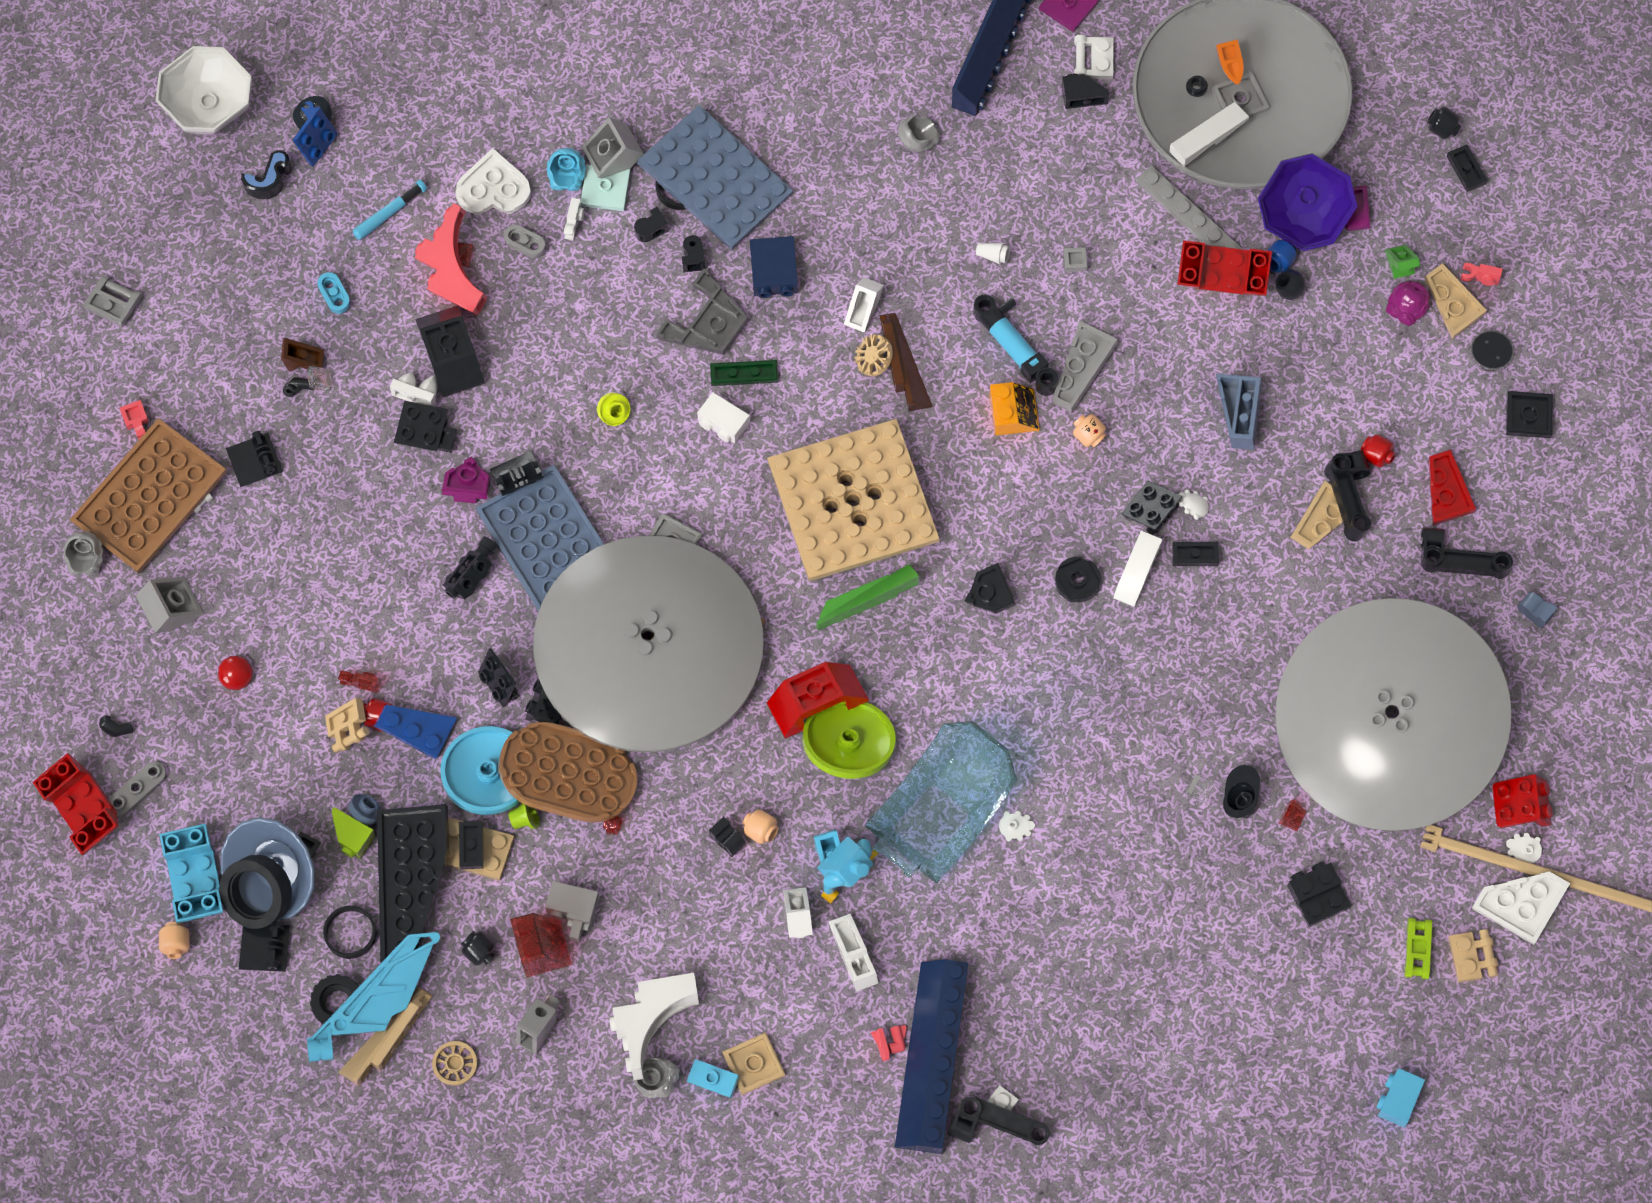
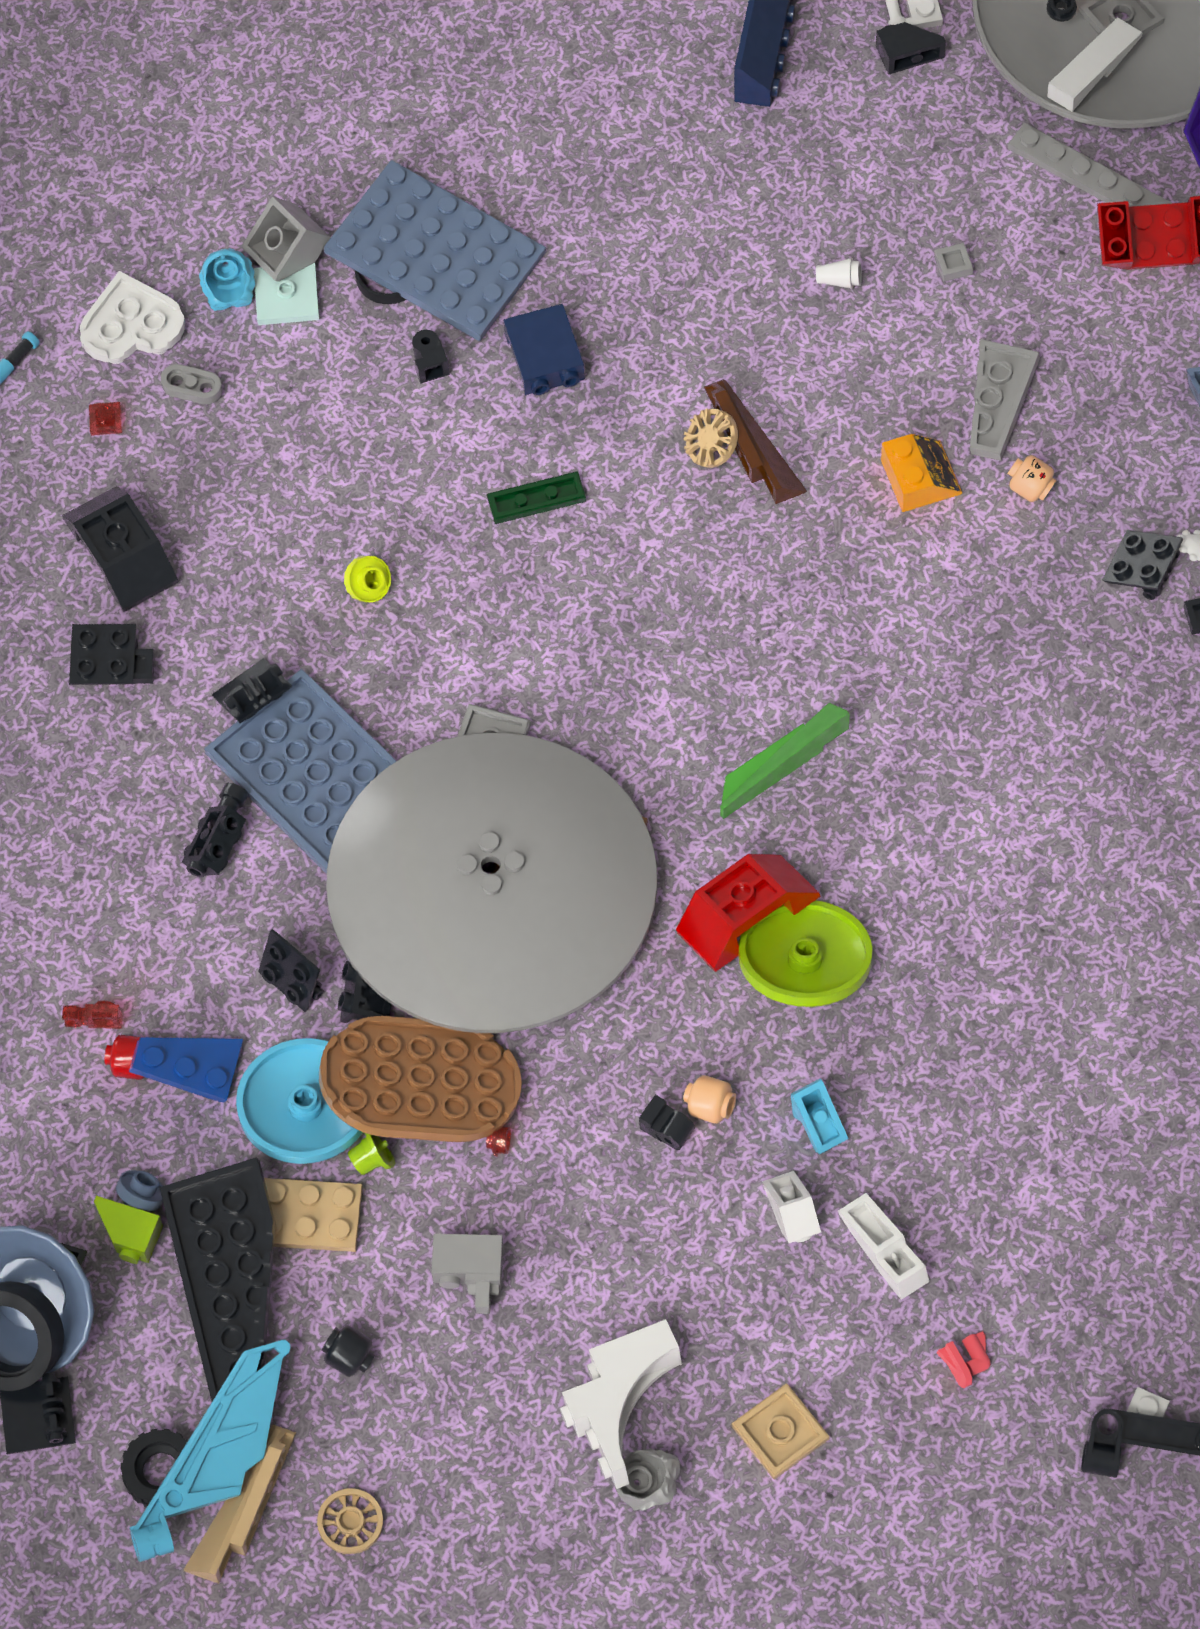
camera: 10 degrees left, 5 degrees down
(334, 914) = (151, 1334): black tyre -> none
(345, 719) = (85, 1070): tan plate -> none
(405, 389) = (70, 608): white tile -> none
(443, 256) = (82, 424): coral arch -> none
(466, 482) = (184, 718): magenta plate -> none
(471, 845) = (305, 1208): black plate -> none
(537, 1024) = (458, 1439): light grey torso -> none
(540, 944) = (435, 1326): clear red slope -> none
(574, 215) = (253, 335): white plate -> none
(651, 227) = (362, 332): black leg -> none
(713, 1078) = (728, 1463): medium azure plate -> none
(714, 325) = (480, 442): flat silver wing -> none
(723, 418) = (523, 561): white brick -> none
(846, 866) = (846, 1126): medium azure torso -> none
(863, 303) = (679, 375): white slope -> none
(874, 464) = (747, 580): tan plate -> none
(918, 133) = (699, 141): light grey hair -> none
(931, 1056) = (1032, 1367): dark blue slope -> none
(944, 800) = (962, 1006): clear light blue windscreen -> none
(990, 590) = (951, 716): black plate -> none
(1015, 825) = (1066, 1026): white piece -> none
(1032, 364) = (932, 409): black piece -> none
(1082, 568) = (1066, 695): black plate -> none
(1137, 568) = (1146, 646): white slope -> none

